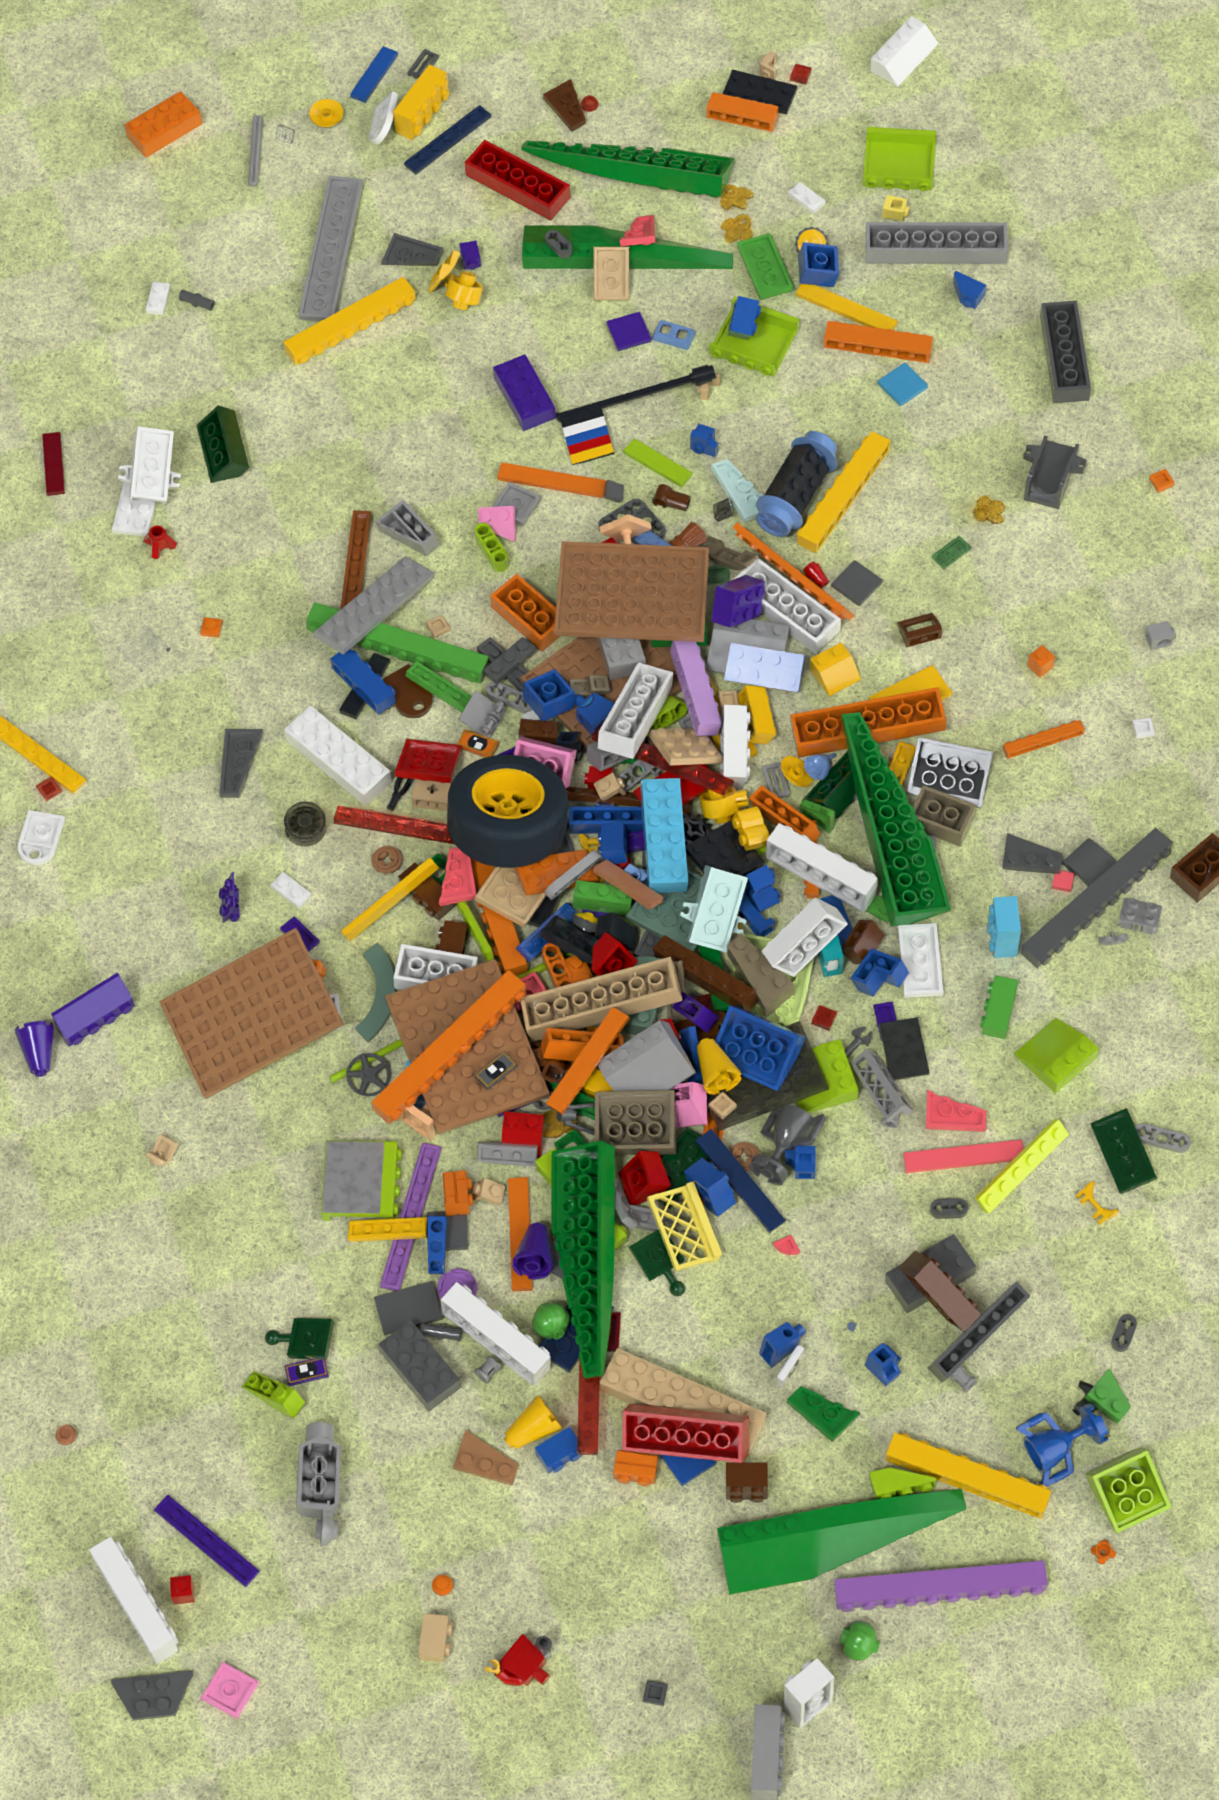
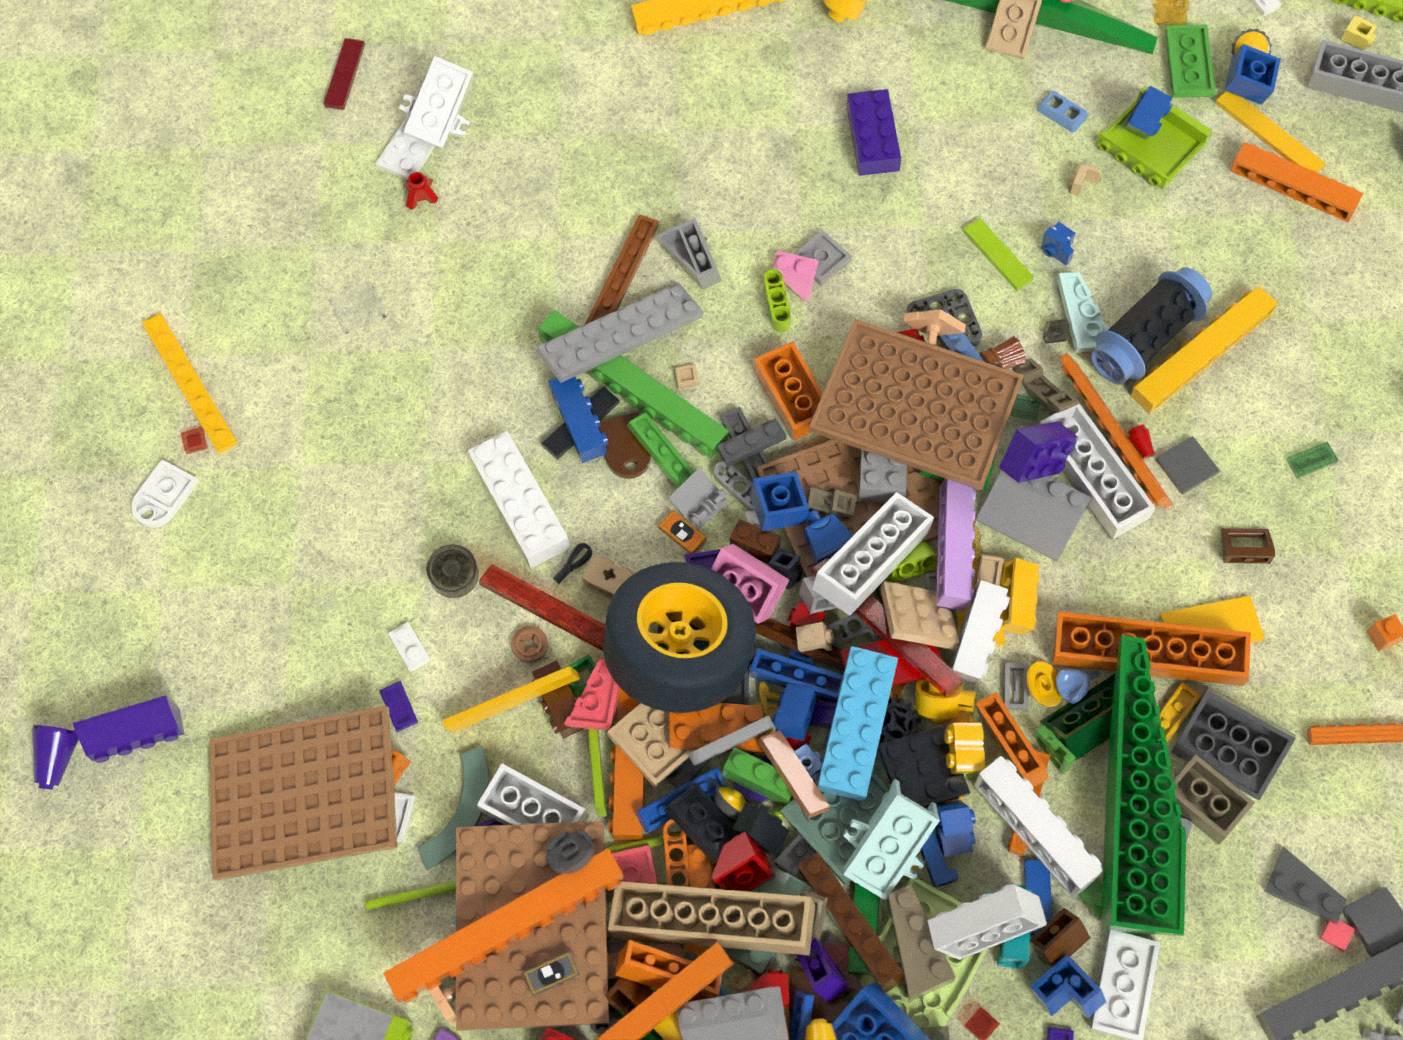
camera: 20 degrees right, 5 degrees up
(162, 1150) = (139, 935): tan bracket -> none
(211, 627) = (439, 304): orange plate -> none
(222, 445) = (527, 101): dark green slope -> none
(230, 900) = (339, 632): dark purple hinge -> none
(238, 755) = (410, 465): dark grey wing -> none
(368, 1074) = (410, 914): dark grey wheel -> none
(428, 761) = (616, 538): red plate -> none
(453, 937) = (567, 773): reddish brown brick -> none
(480, 982) = (570, 852): none -> dark grey tile
(551, 480) = (872, 241): orange tile -> none
(586, 426) = (930, 188): flag -> none
(613, 491) = (937, 273): dark grey tile -> none
(628, 331) = (1013, 94): dark purple tile -> none
(666, 497) = (995, 297): reddish brown piece -> none
(764, 667) = (1045, 541): brick -> none
(834, 669) = (1129, 566): yellow slope -> none
(902, 384) = (1310, 239): dark azure tile -> none
(989, 510) = (1372, 420): clear yellow plate -> none
(1004, 927) = (1247, 984): medium azure brick -> none

